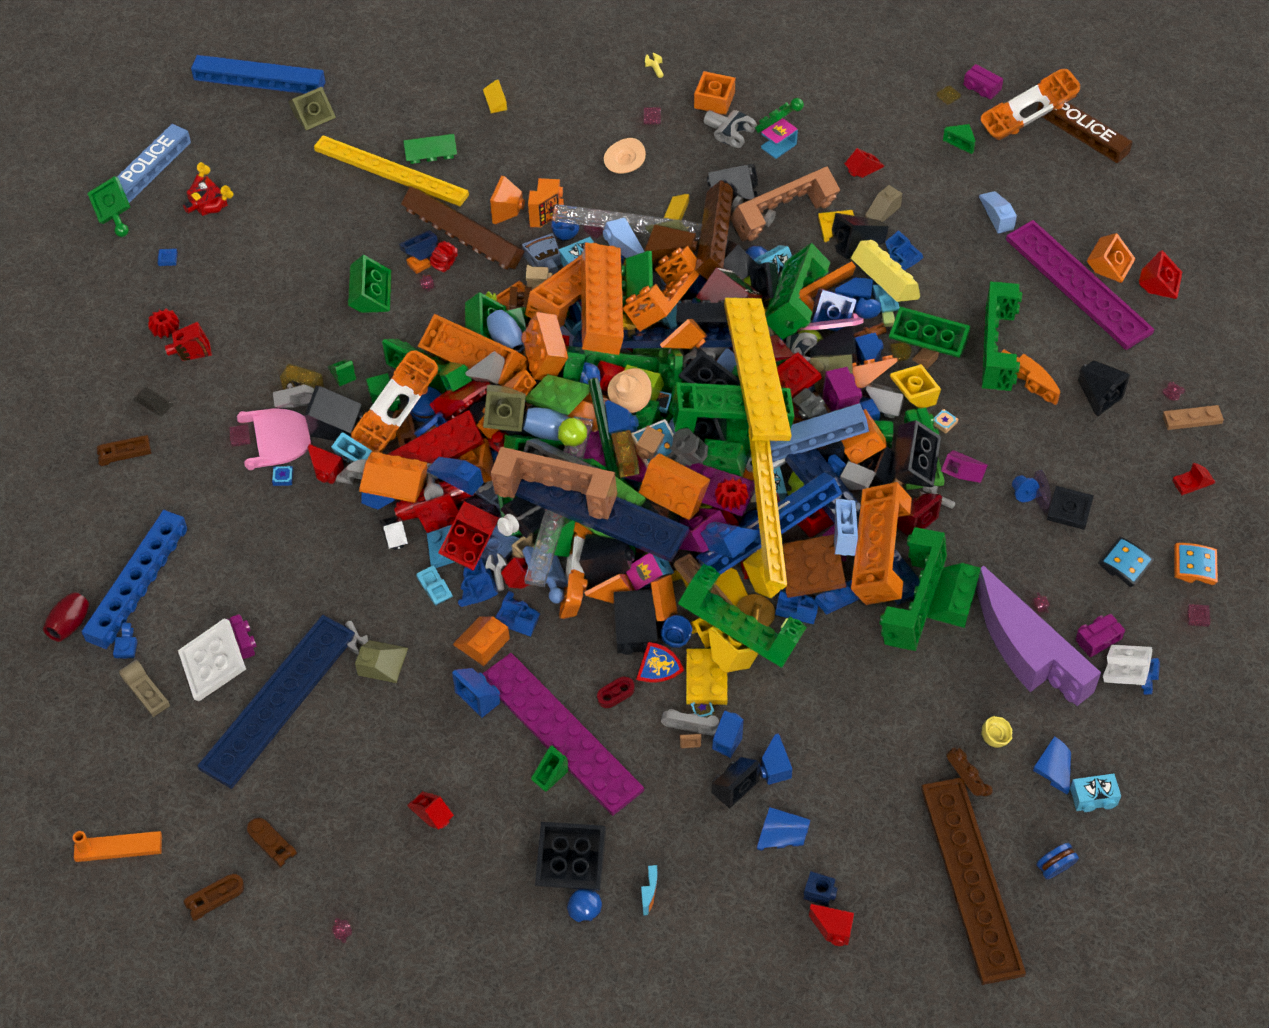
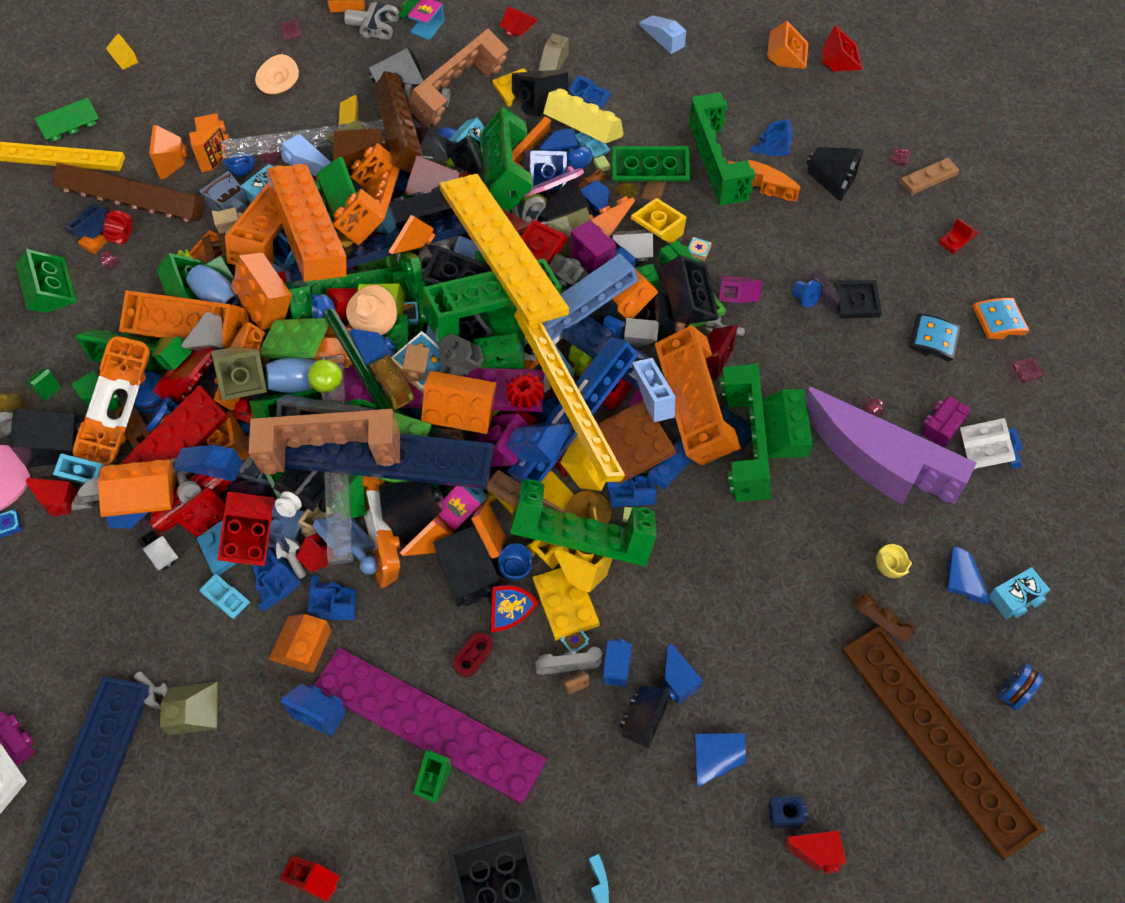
camera: 20 degrees left, 5 degrees up
(1061, 342) = (775, 140): none -> blue slope
(1080, 285) = (770, 80): magenta plate -> none

